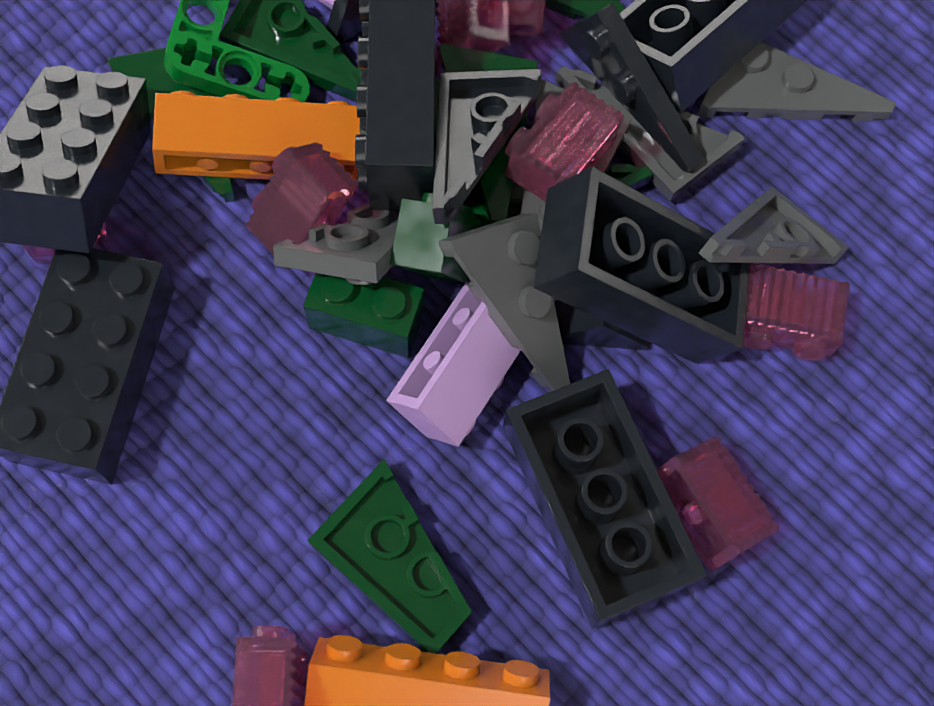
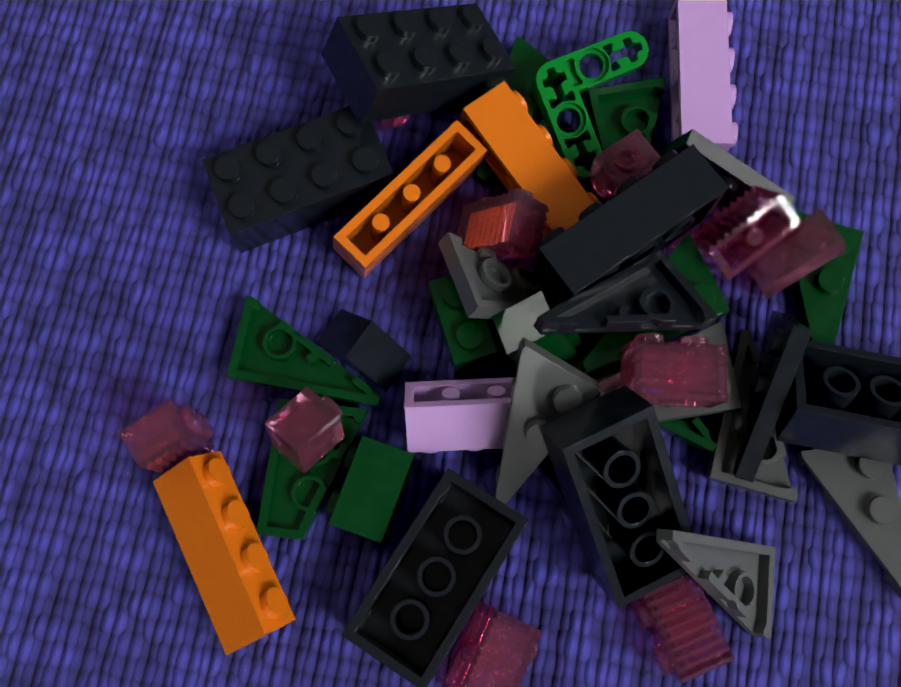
camera: 60 degrees right, 5 degrees up
(200, 272) = (409, 199): none -> orange brick
(261, 515) = (278, 357): none -> dark green wing
(314, 423) = (364, 348): none -> black slope
(329, 54) = (620, 162): none -> clear pink brick
(367, 523) = (306, 428): none -> clear pink brick
(469, 508) = (371, 489): none -> dark green brick

